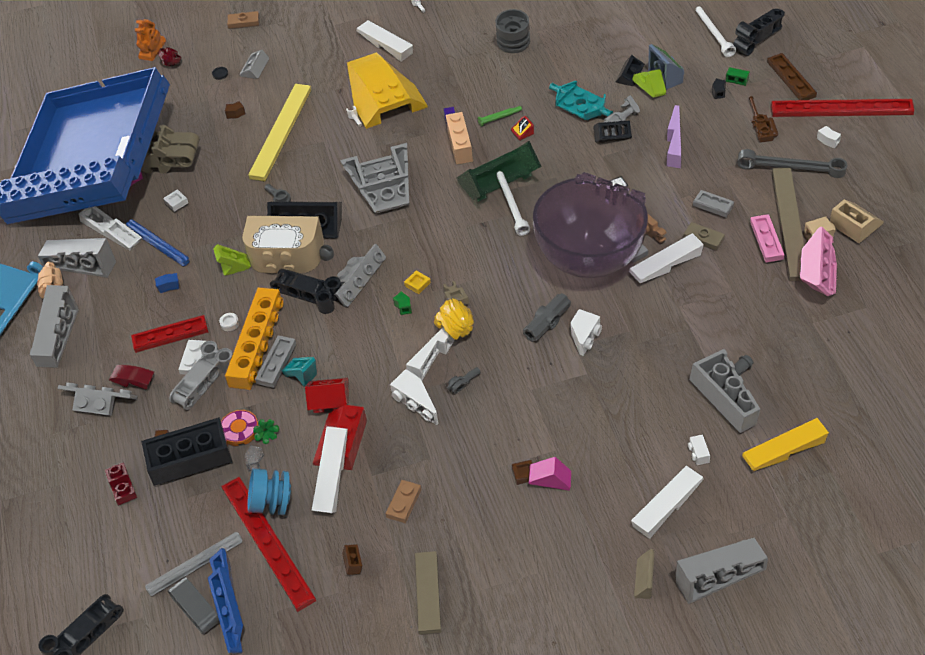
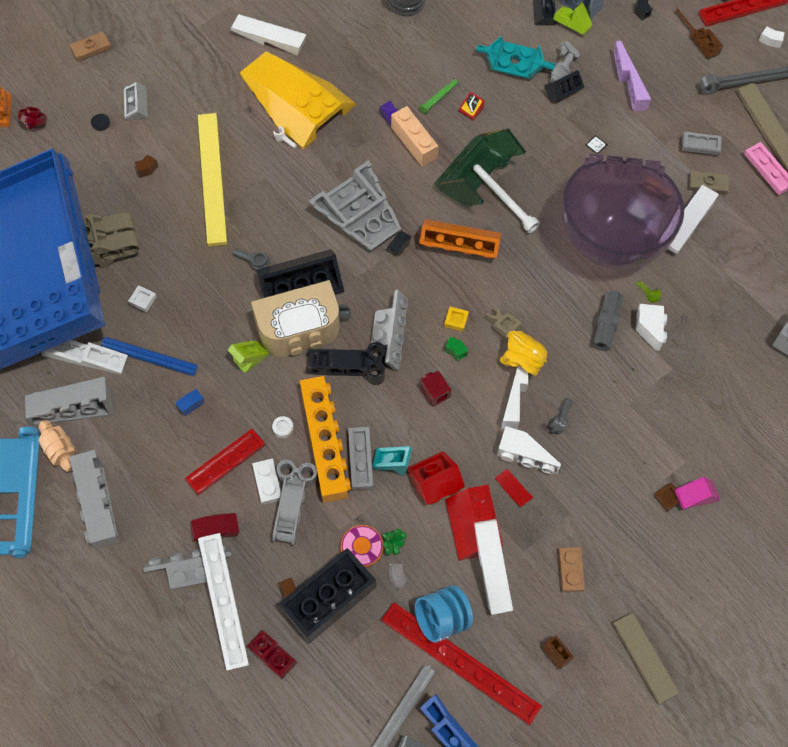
camera: 30 degrees left, 15 degrees up
(102, 429) = (223, 602): none -> white plate
(367, 327) = (435, 388): none -> dark red brick
(391, 423) = (513, 488): none -> red sticker
(402, 213) = (400, 242): none -> black piece
(452, 221) = (460, 238): none -> orange brick
(601, 310) = (653, 296): none -> clear neon green hand

